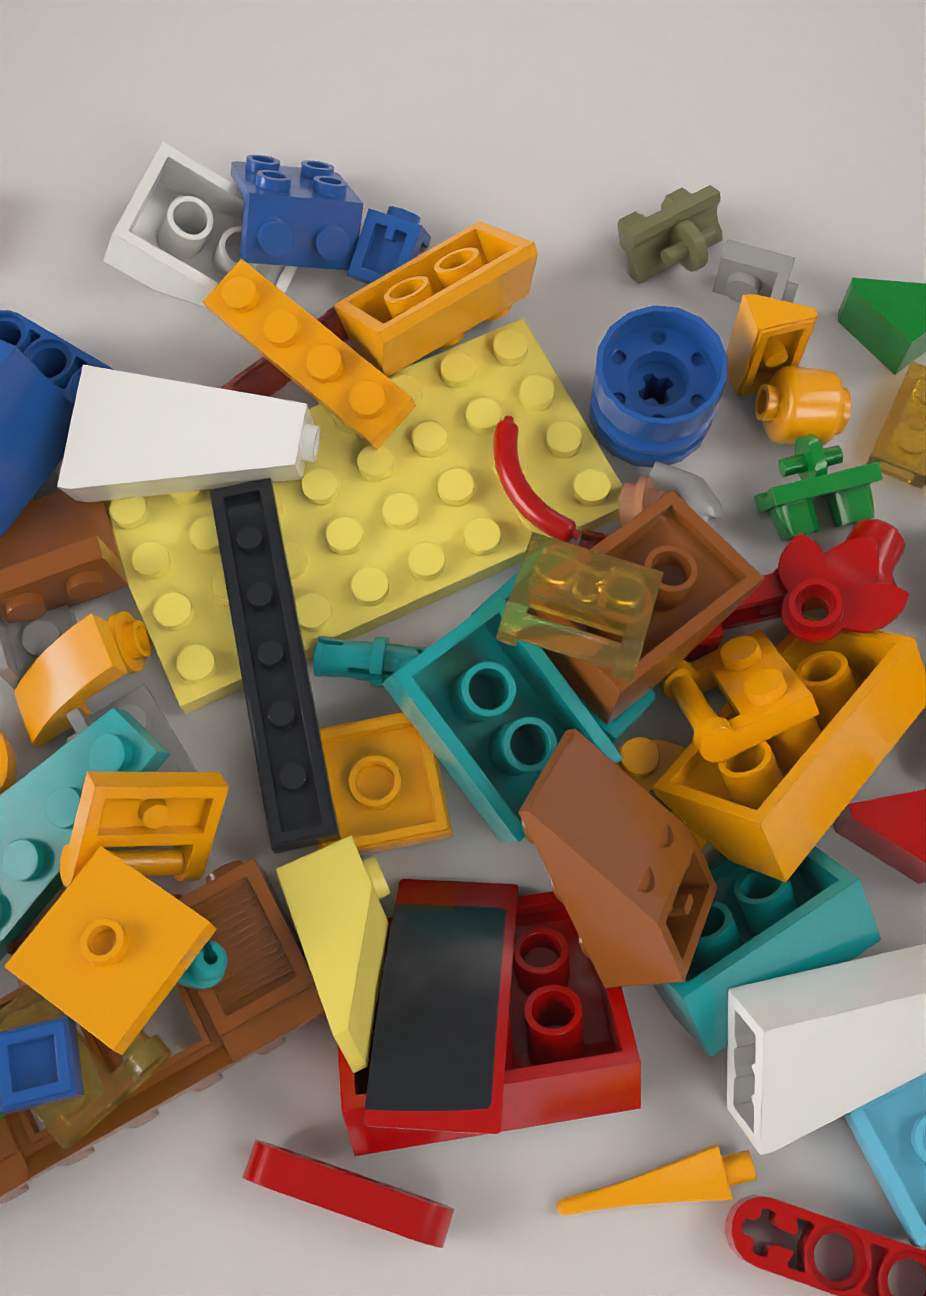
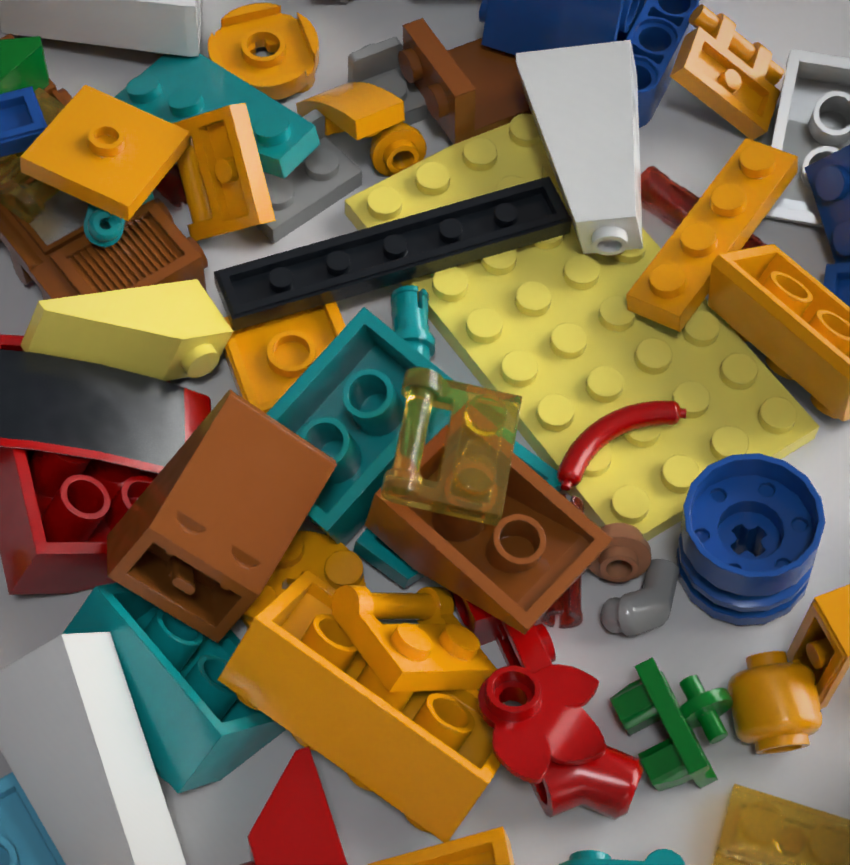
camera: 75 degrees right, 10 degrees down
(102, 308) = (728, 72): none -> light orange plate

